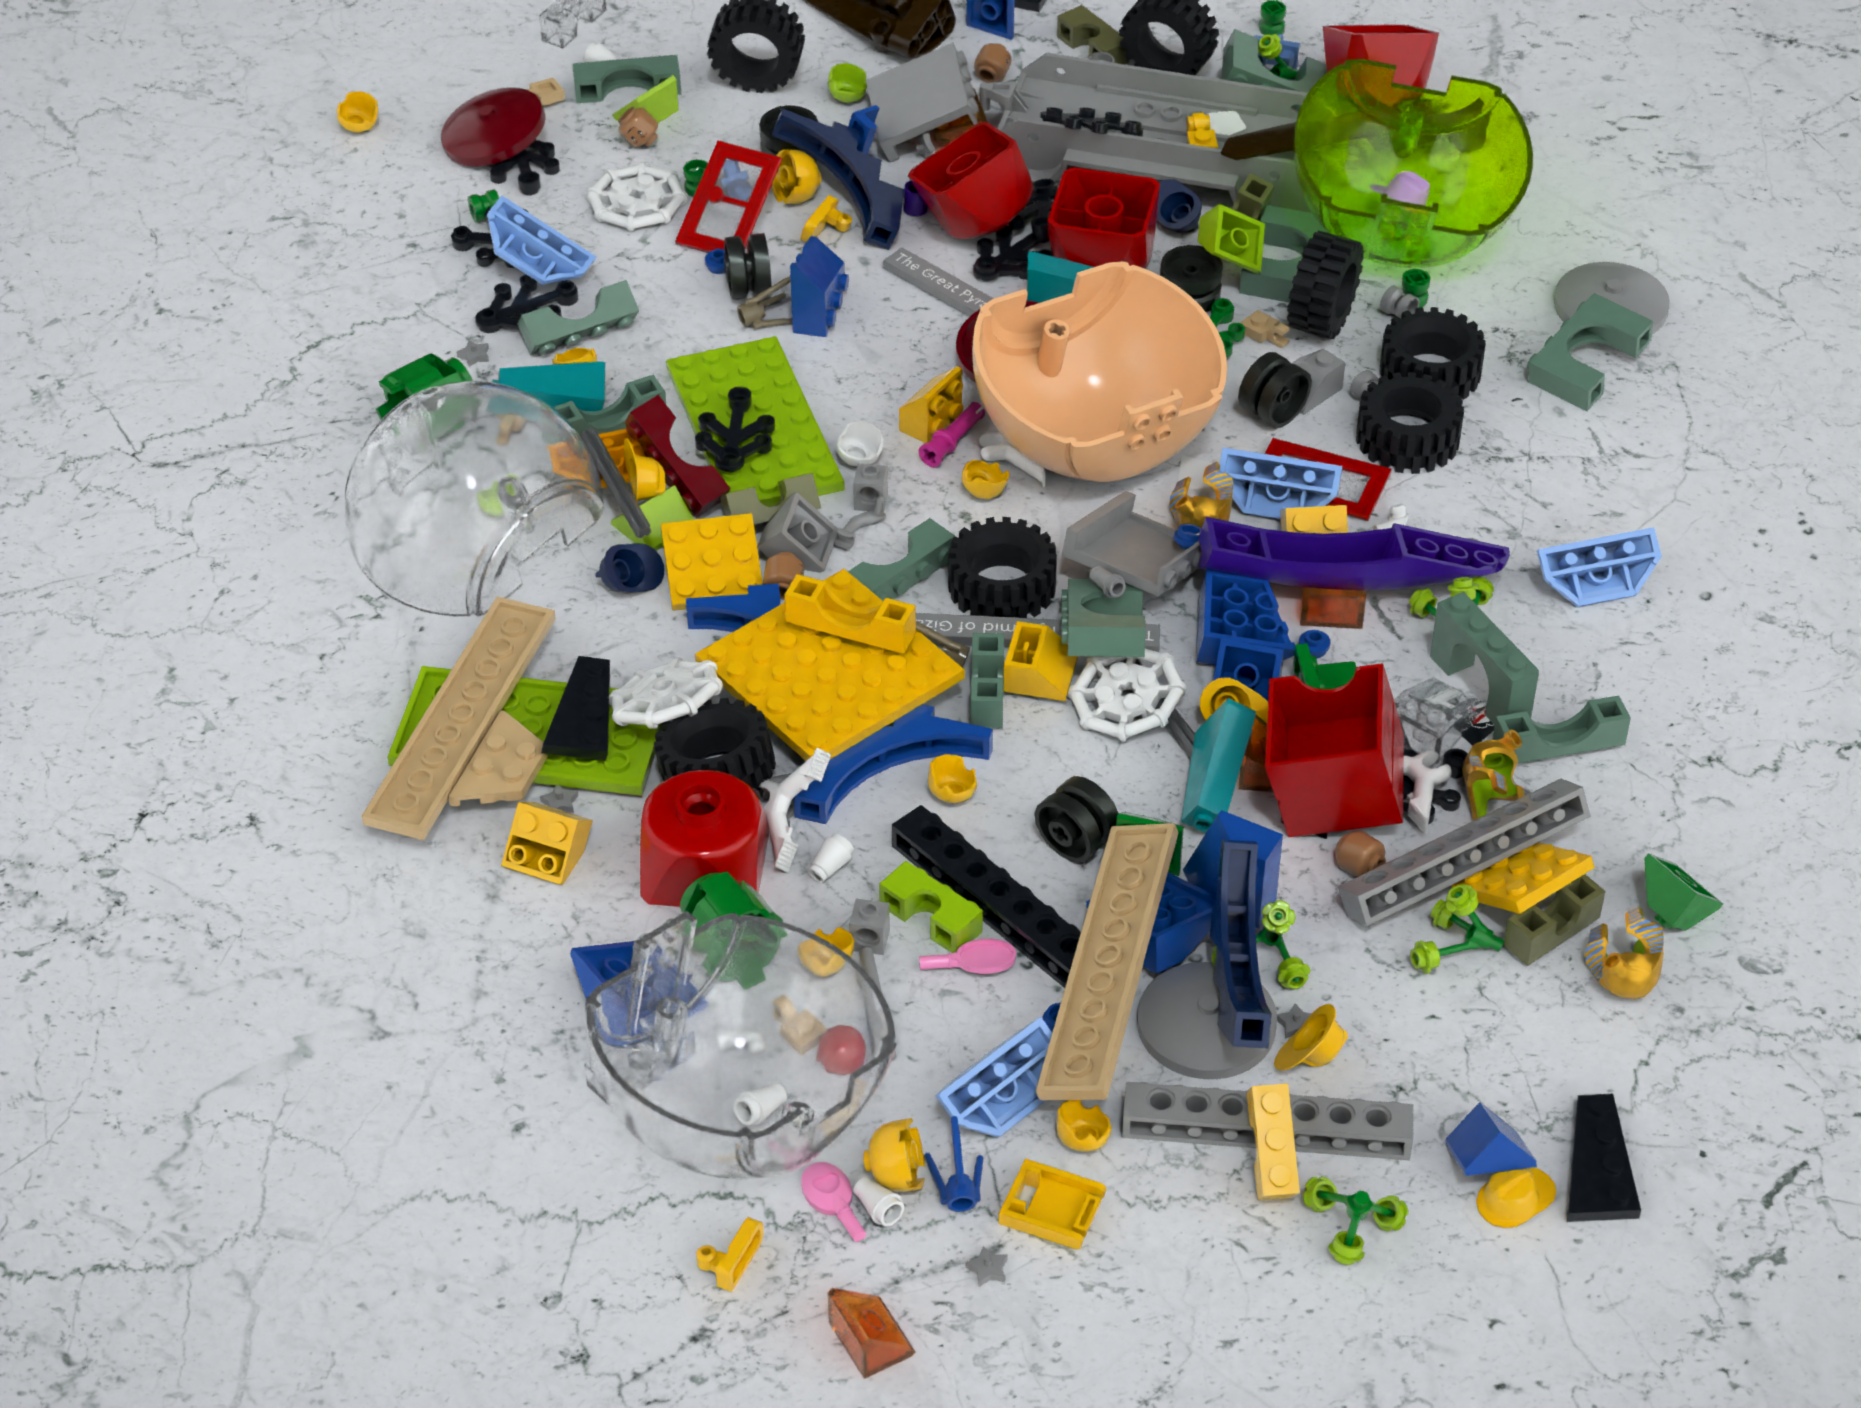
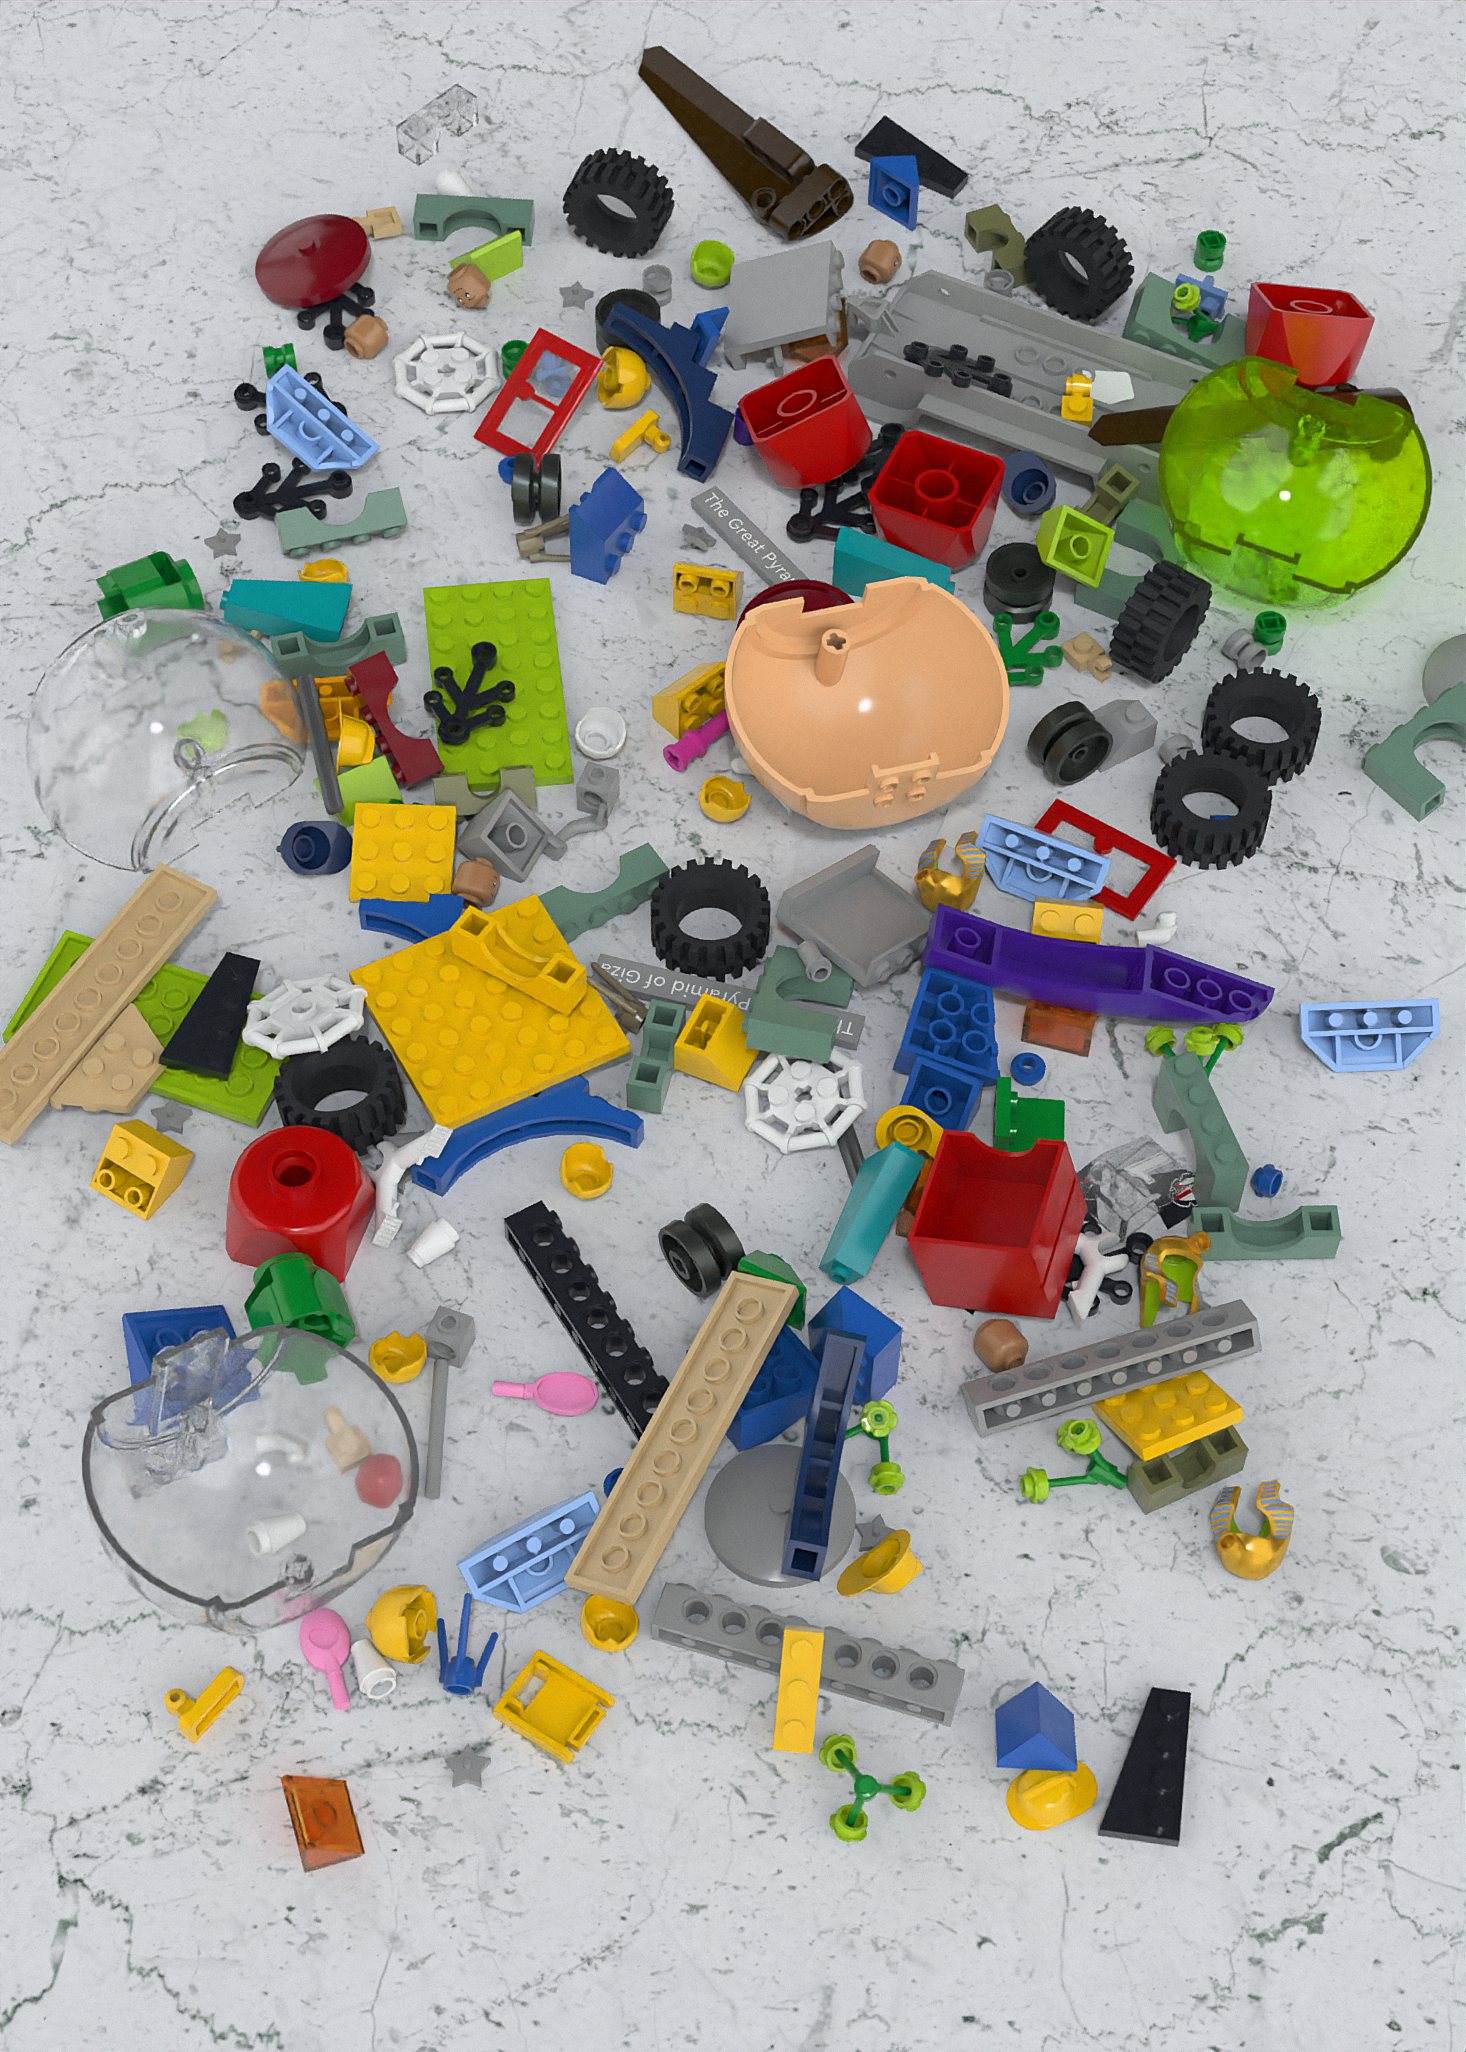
camera: 10 degrees right, 10 degrees up
(358, 111) = (173, 218): yellow hair -> none
(557, 178) = (366, 337): none -> medium nougat head
(732, 125) = (575, 295): none -> light grey piece
(805, 98) = (657, 283): none -> light grey wheel
(898, 288) = (698, 537): none -> light grey piece
(914, 891) = (506, 1301): lime arch -> none
(920, 323) = (707, 590): none -> yellow slope
(1187, 535) = (920, 913): blue plate -> none
(1406, 187) = (1288, 513): lavender piece -> none
(1549, 694) = (1267, 1180): none -> blue plate
(1676, 895) = (1333, 1459): green slope -> none

